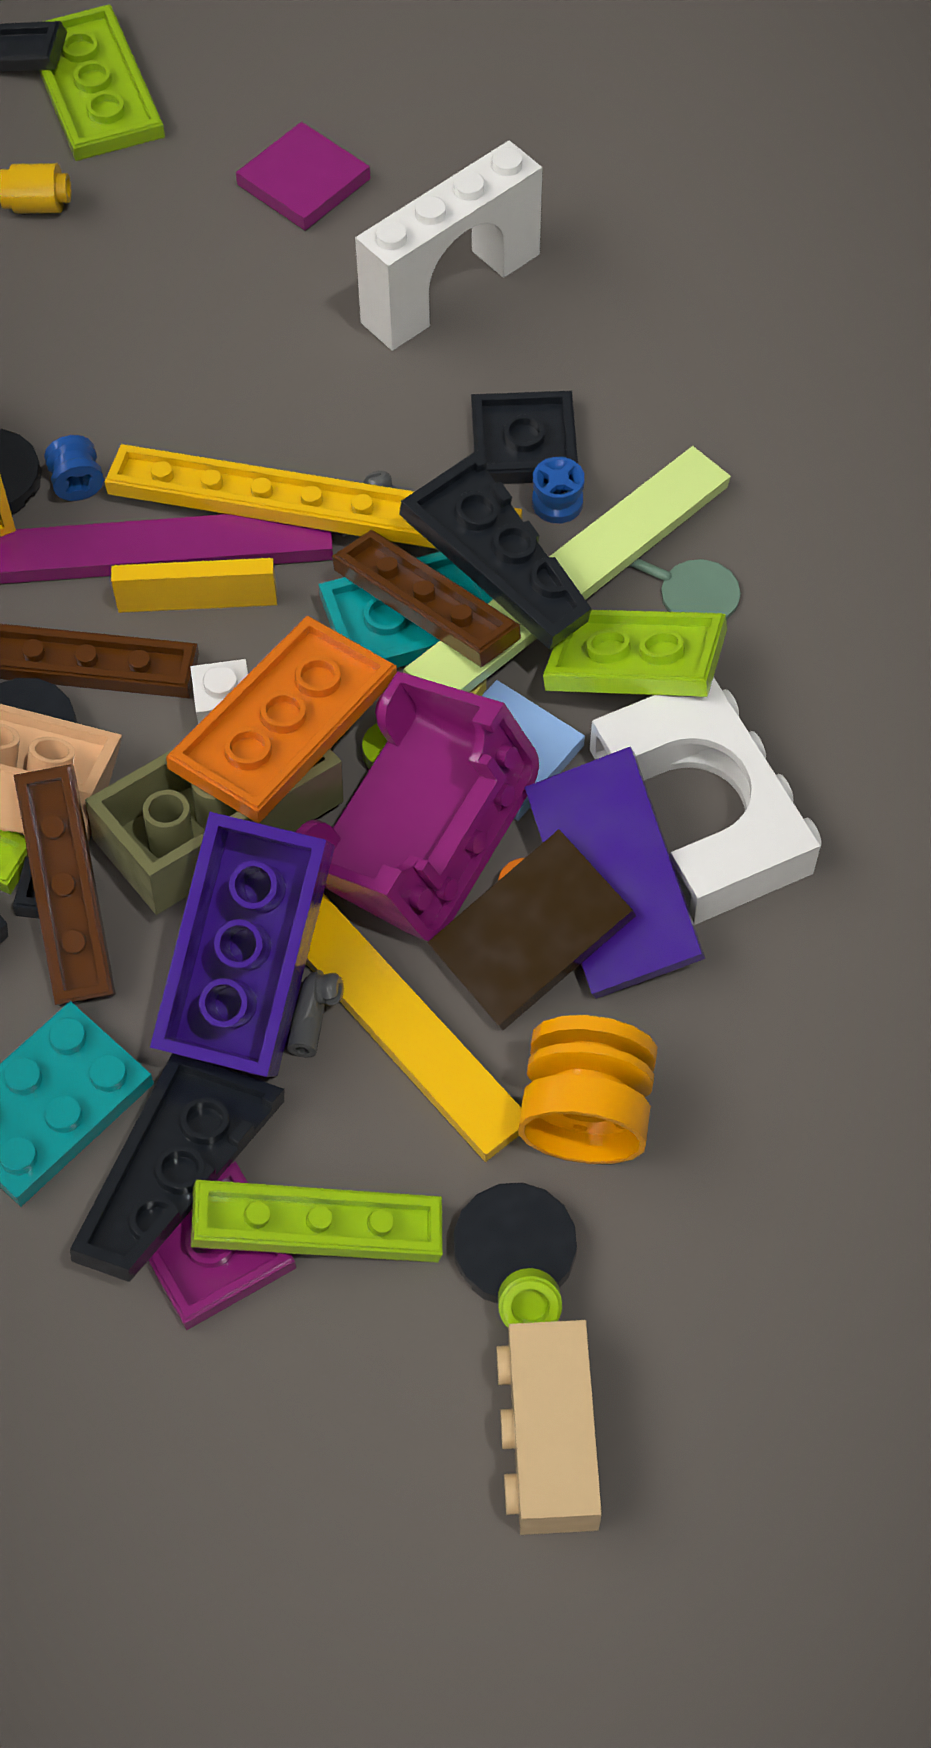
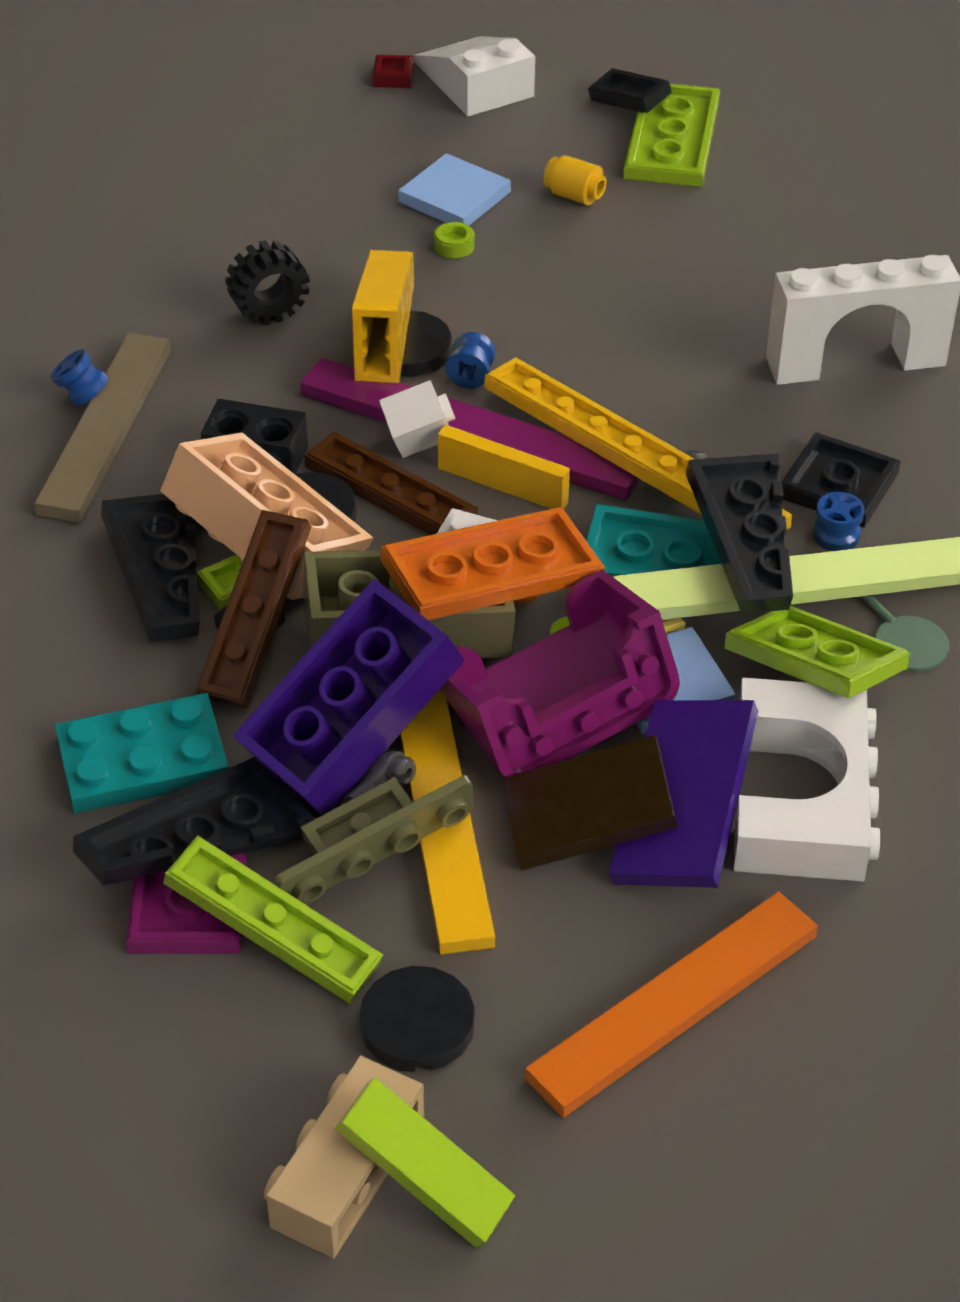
camera: 30 degrees right, 15 degrees down
(73, 568) = (416, 417): none -> white brick
(303, 175) = (788, 243): magenta tile -> none
(340, 1071) = (369, 830): none -> olive bracket
(427, 598) = (669, 540): reddish brown tile -> none
(529, 1297) = (398, 1051): lime tile -> none
(588, 1089) = (546, 926): light orange wheel -> none
(636, 1396) = (425, 1162): none -> lime tile
(730, 1100) = (669, 1004): none -> orange tile

